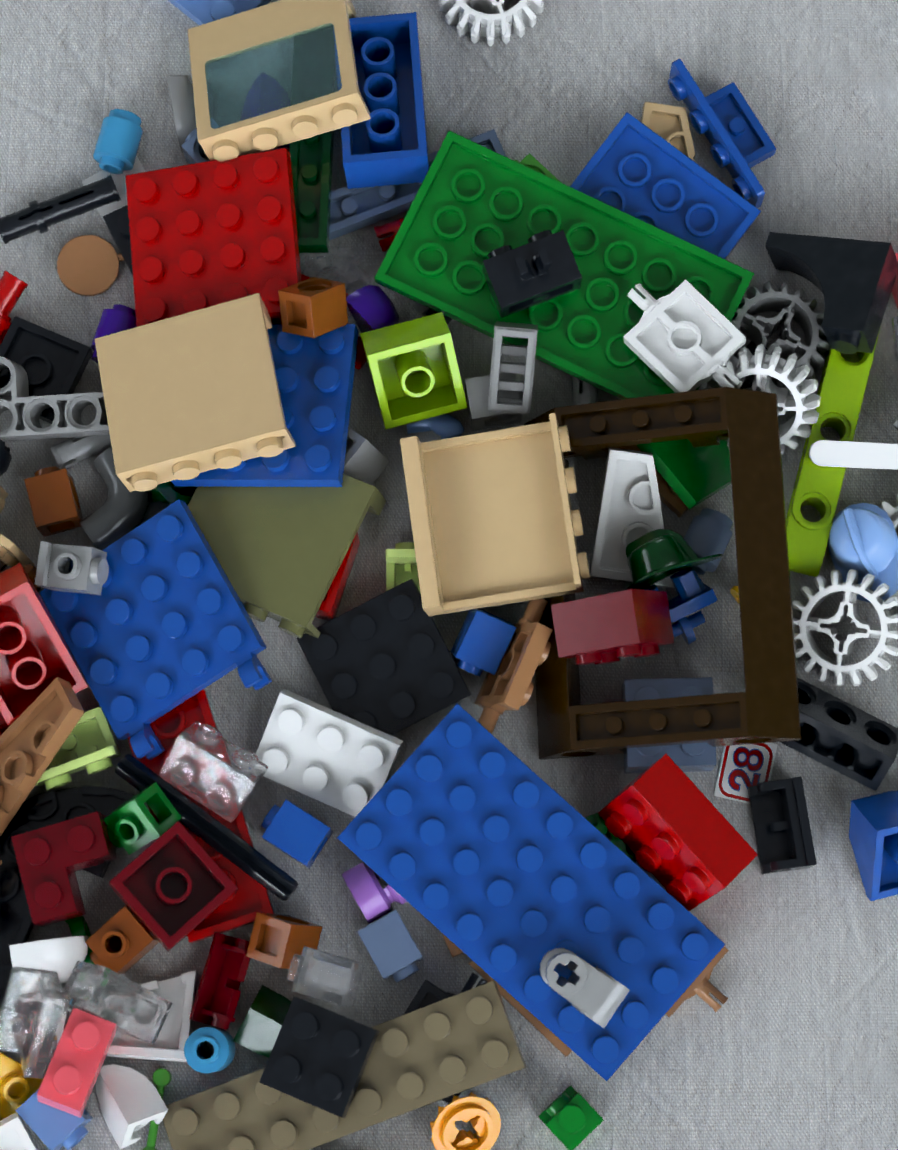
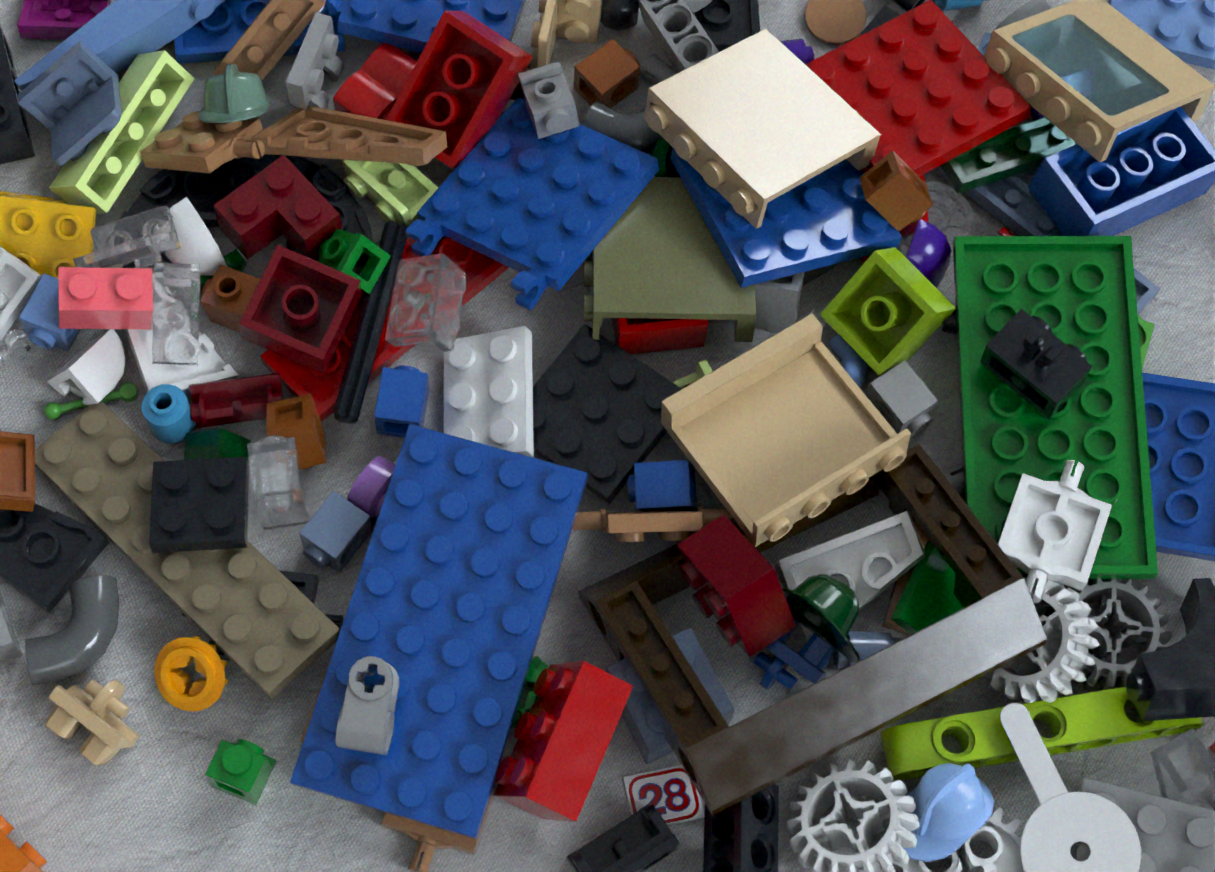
camera: 55 degrees right, 10 degrees down
(513, 330) = (944, 406): light grey slope -> none

